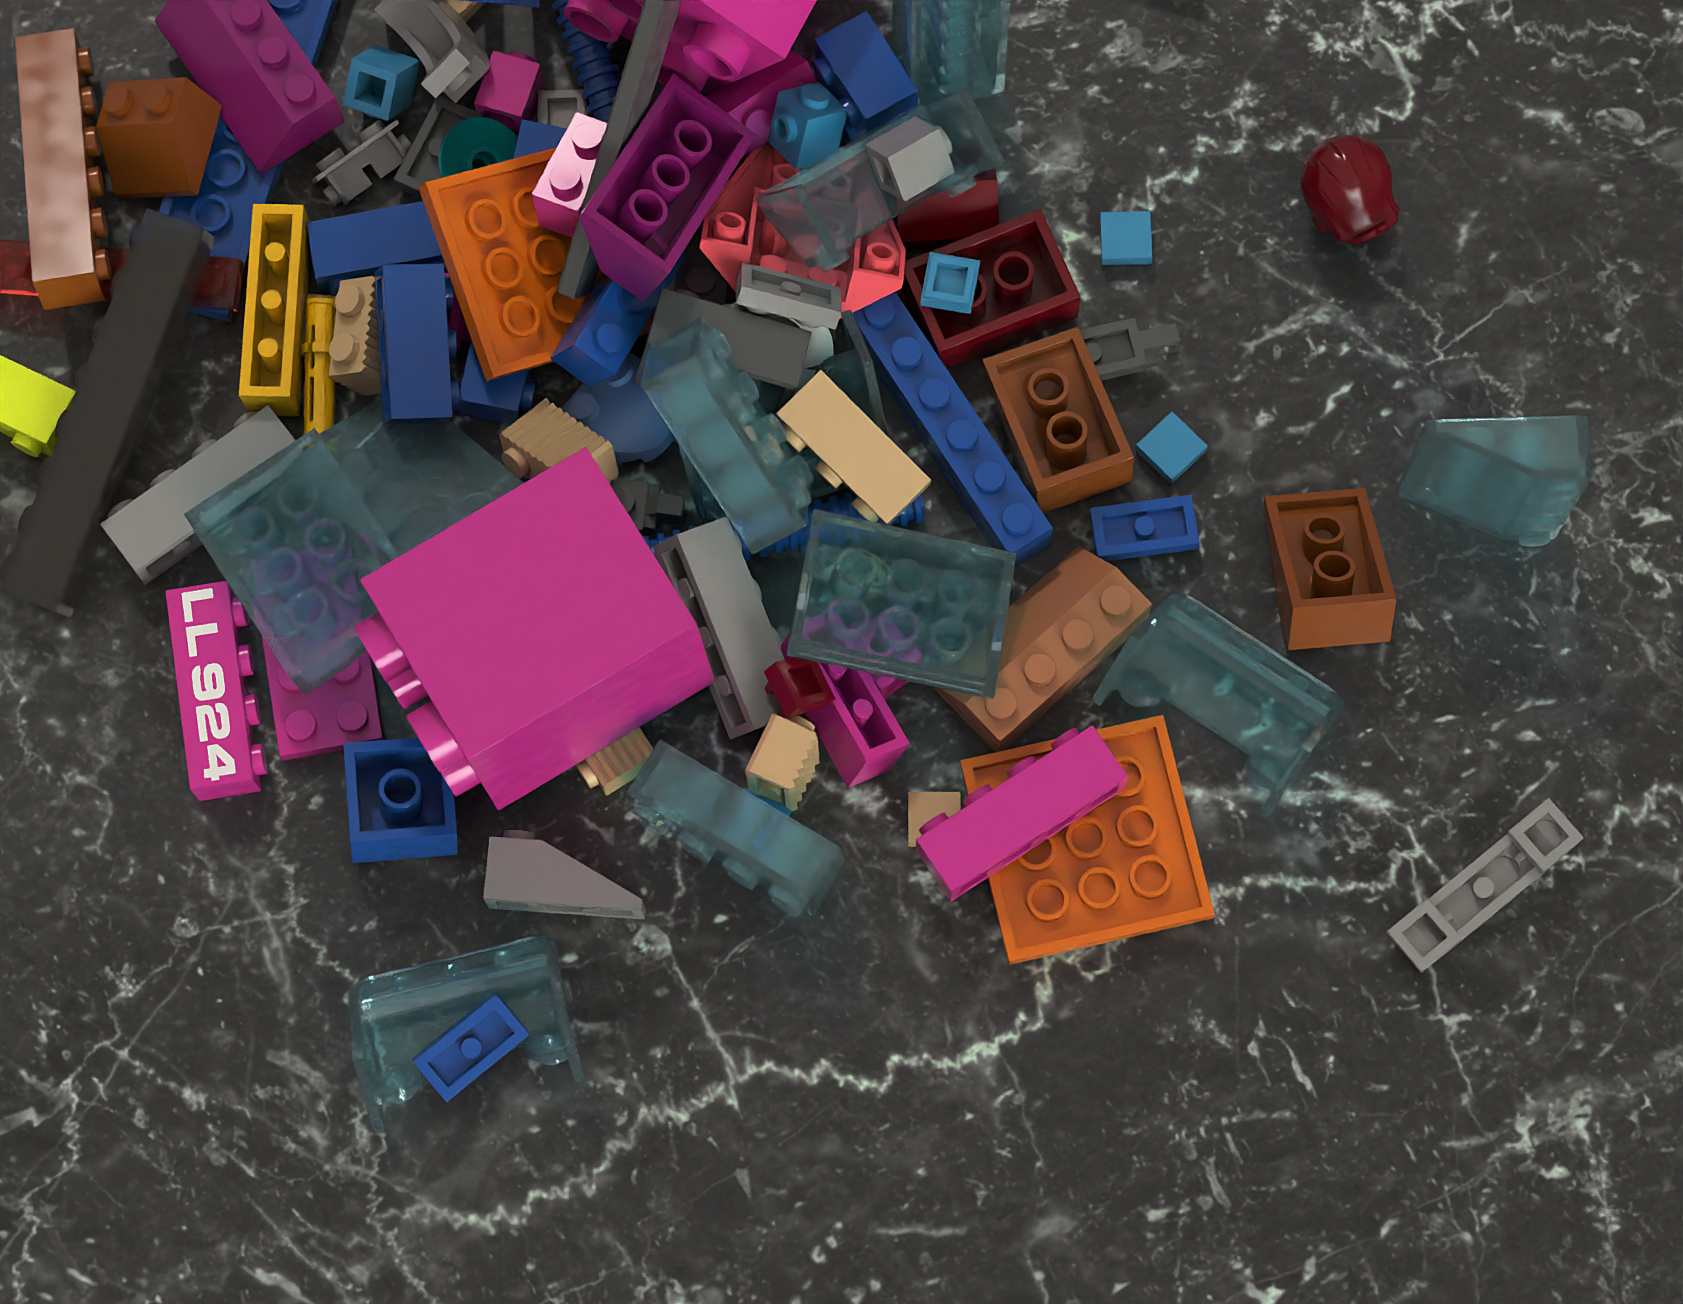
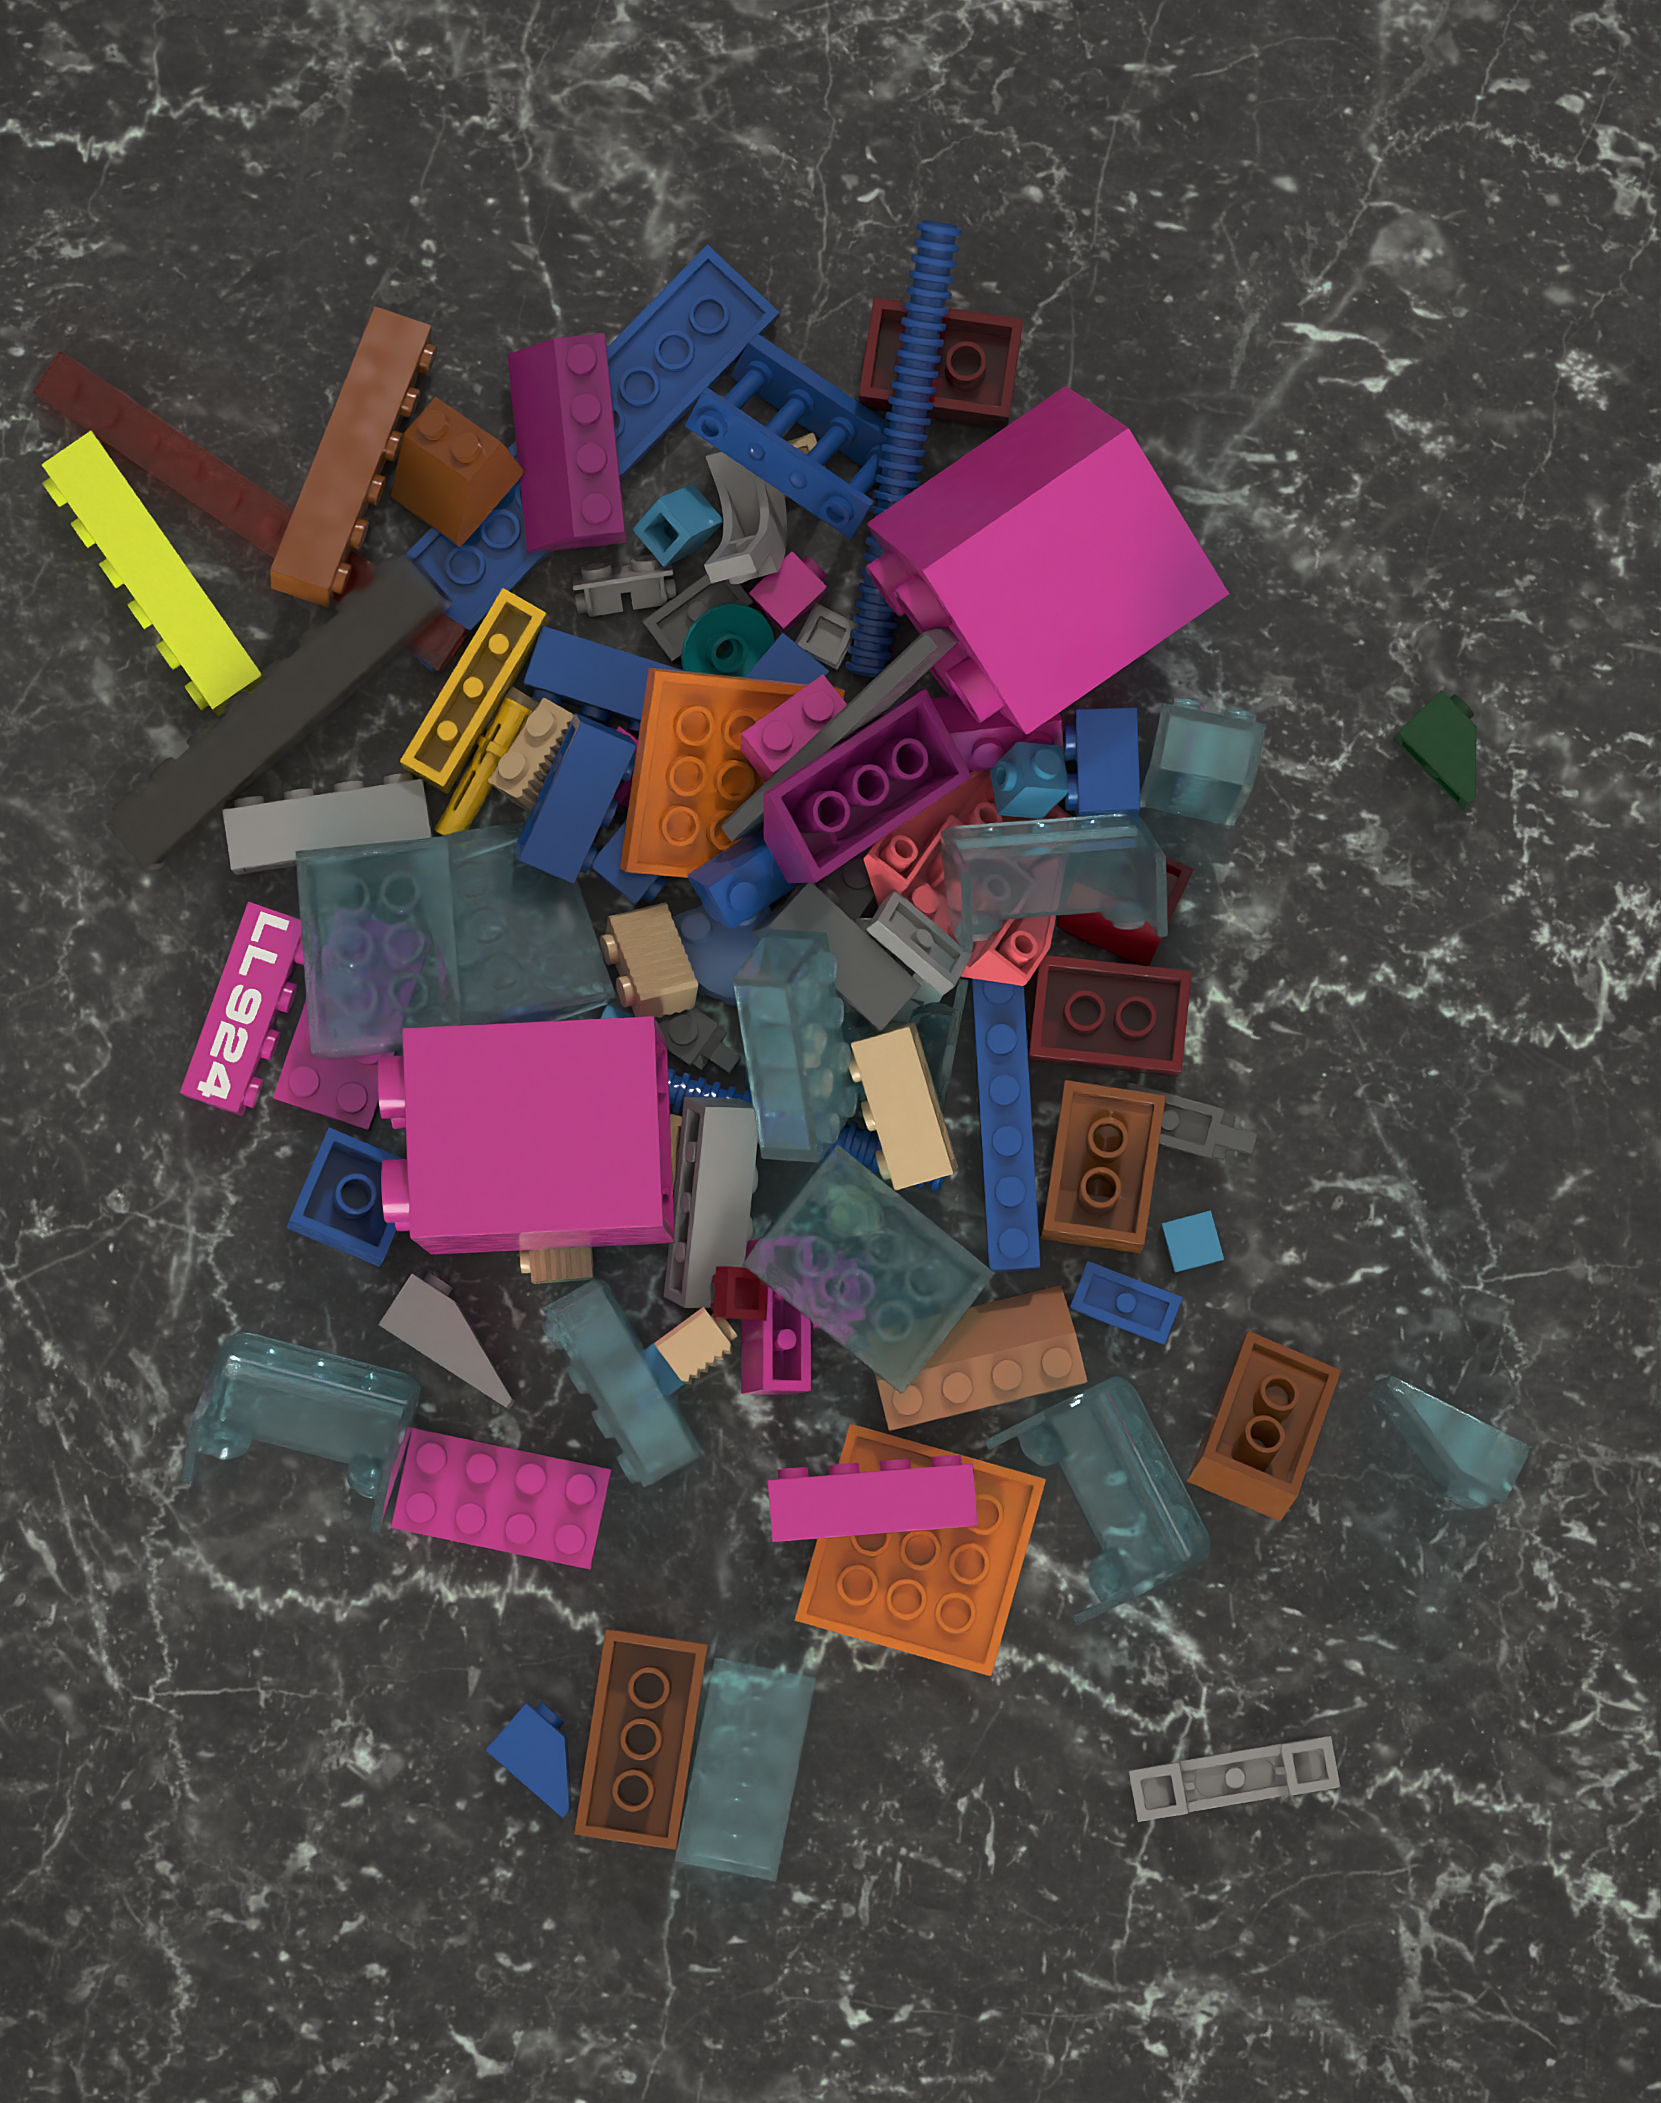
camera: 30 degrees right, 10 degrees up
(470, 1046) = (302, 1443): blue plate -> none
(681, 1001) = (501, 1498): none -> dark pink plate
(841, 1213) = (537, 1754): none -> blue slope
(911, 158) = (1096, 873): light grey brick -> none
(927, 805) = (802, 1450): tan tile -> none
(930, 1142) = (641, 1739): none -> dark orange brick
(950, 283) = (1072, 999): dark azure tile -> none
(1041, 1118) = (745, 1769): none -> clear light blue brick
(1125, 238) = (1262, 1026): dark azure tile -> none
(1349, 189) = (1480, 1099): dark red hair -> none

